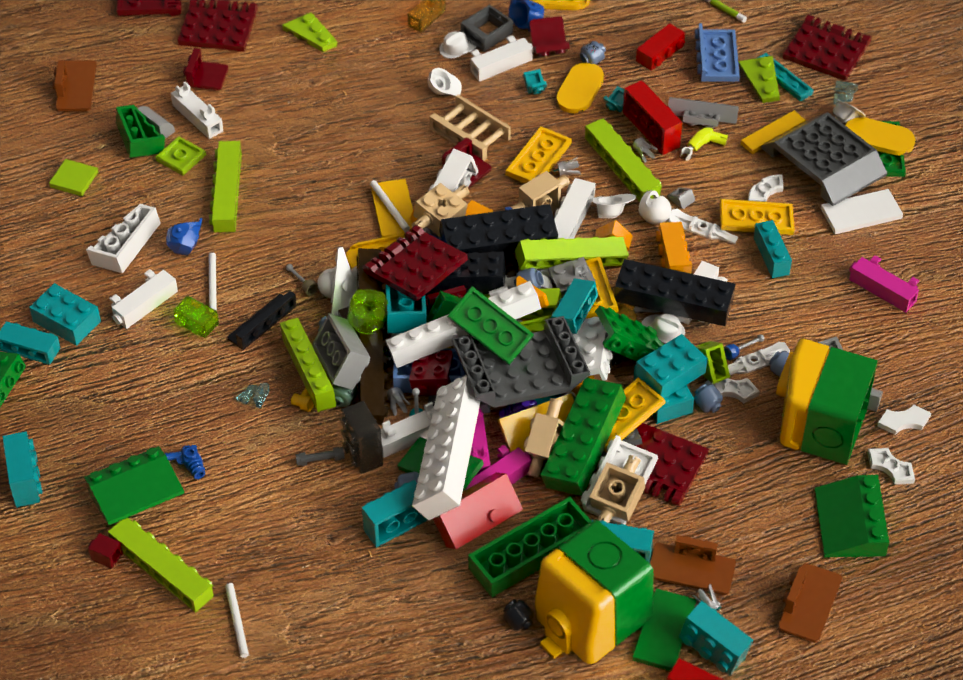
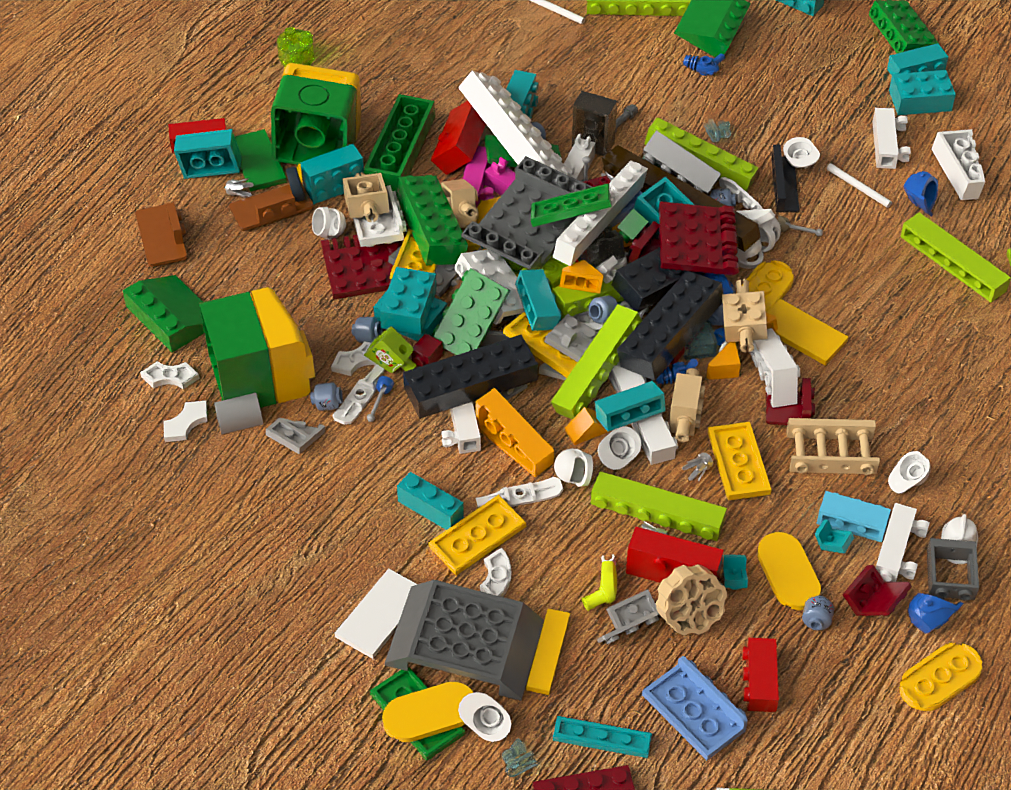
camera: 140 degrees right, 0 degrees up
(196, 316) = (833, 148): clear neon green brick -> none
(230, 316) = (801, 152): none -> white piece
(313, 316) = (741, 195): none -> white piece
(367, 311) = (691, 180): clear neon green brick -> none
(392, 209) = (807, 323): white bar -> none
(507, 85) = (854, 515): none -> medium azure brick
(518, 615) = (370, 104): black head -> none
(584, 205) = (630, 406): none -> teal brick
(661, 506) = (328, 222): none -> white helmet
(663, 551) = (295, 184): none -> black bush
(670, 83) = (695, 601): none -> tan connector
(682, 197) = (568, 512): light grey slope -> none
(762, 77) = (619, 711): lime wing -> none
(884, 284) = (296, 536): dark pink brick -> none

